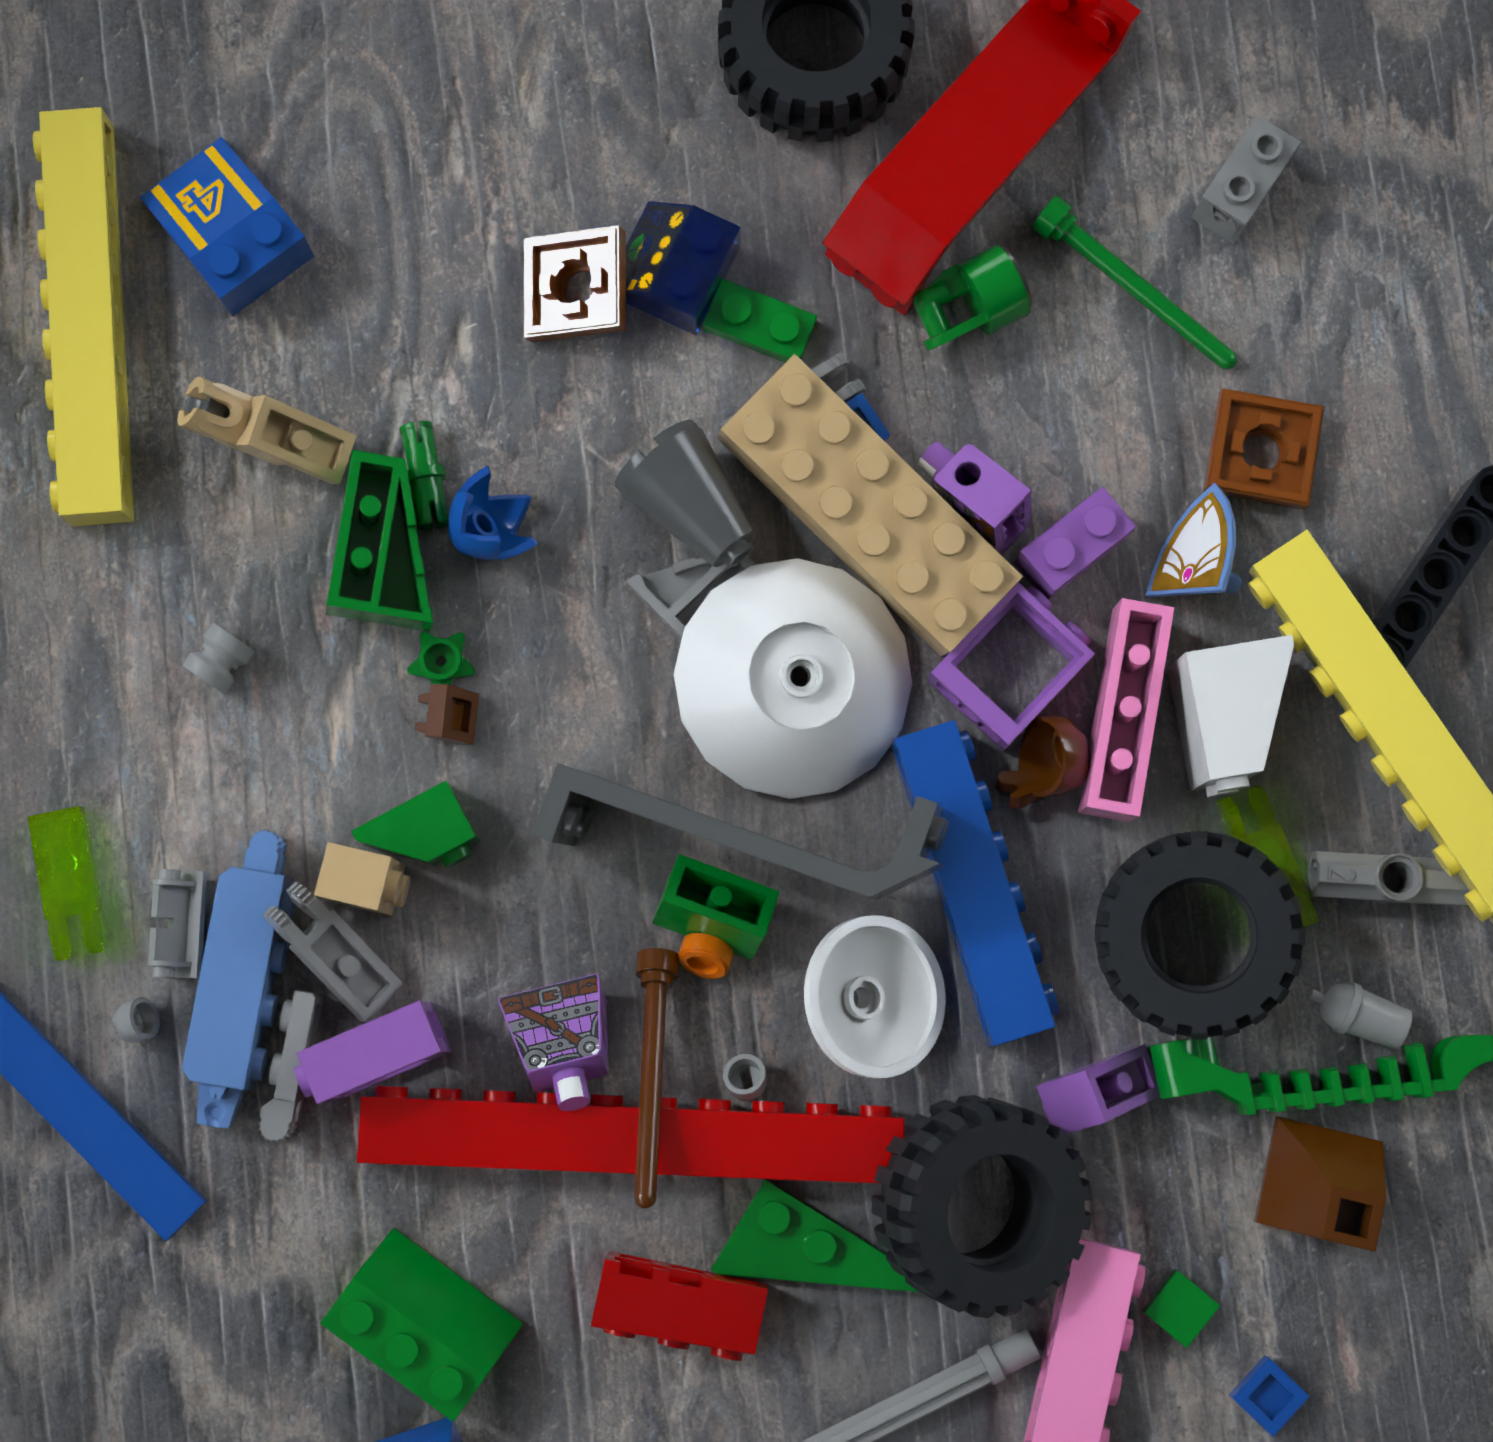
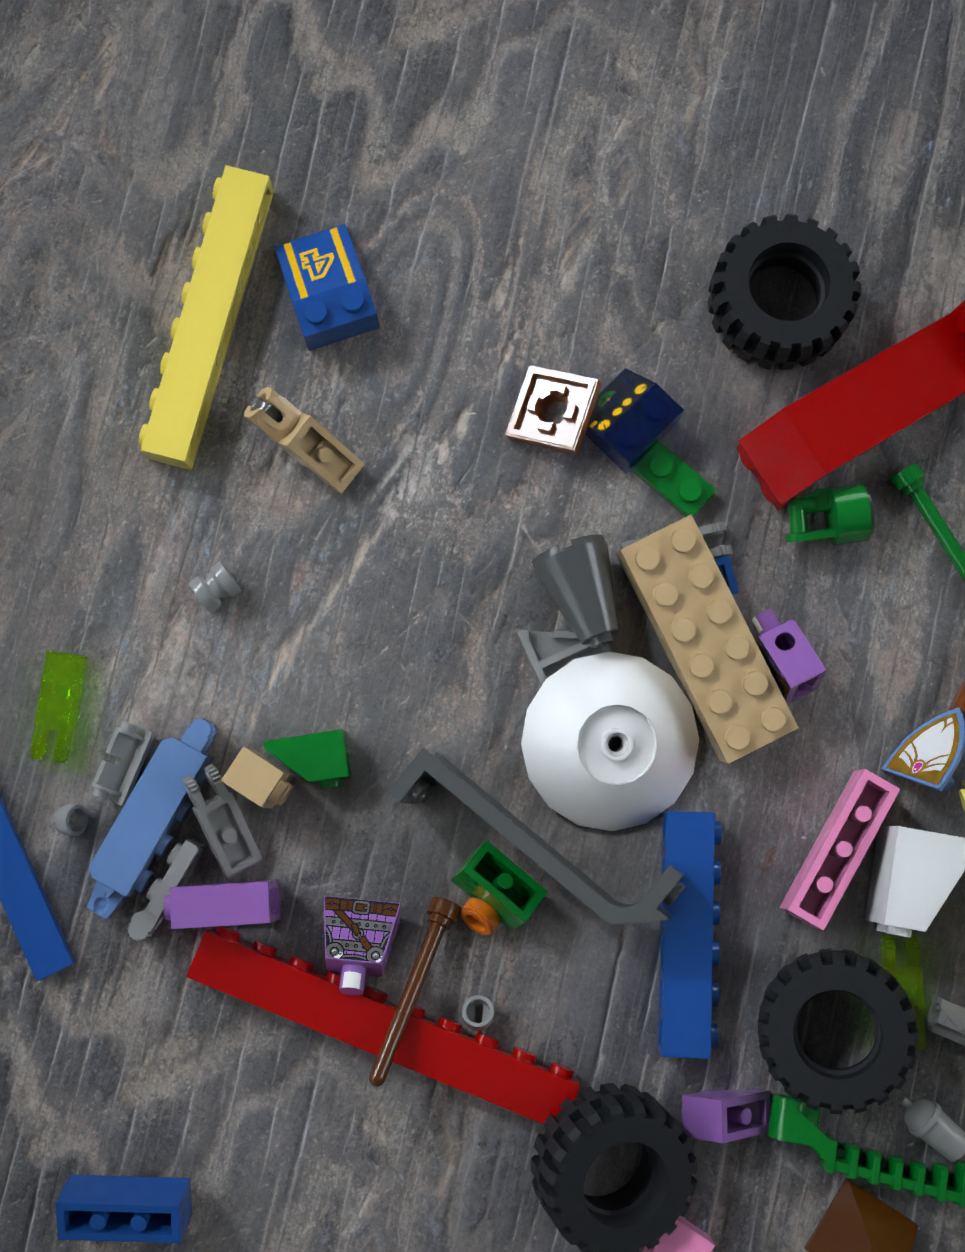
camera: 25 degrees right, 0 degrees up
(377, 548) = (351, 549): green wedge -> none
(422, 1323) = (192, 1106): green slope -> none
(425, 475) = (402, 508): green pin -> none
(435, 647) = (366, 652): green plate -> none
(449, 714) = (361, 682): reddish brown tile -> none
(487, 524) = (433, 557): blue piece -> none
(679, 1305) = (376, 1159): red wedge -> none
(796, 1243) = (473, 1143): green wing -> none
(897, 993) = (605, 994): white dish -> none
(979, 708) = (733, 807): medium lavender window -> none
(1050, 761) = (771, 866): reddish brown piece -> none
(1074, 544) = (843, 716): medium lavender brick -> none

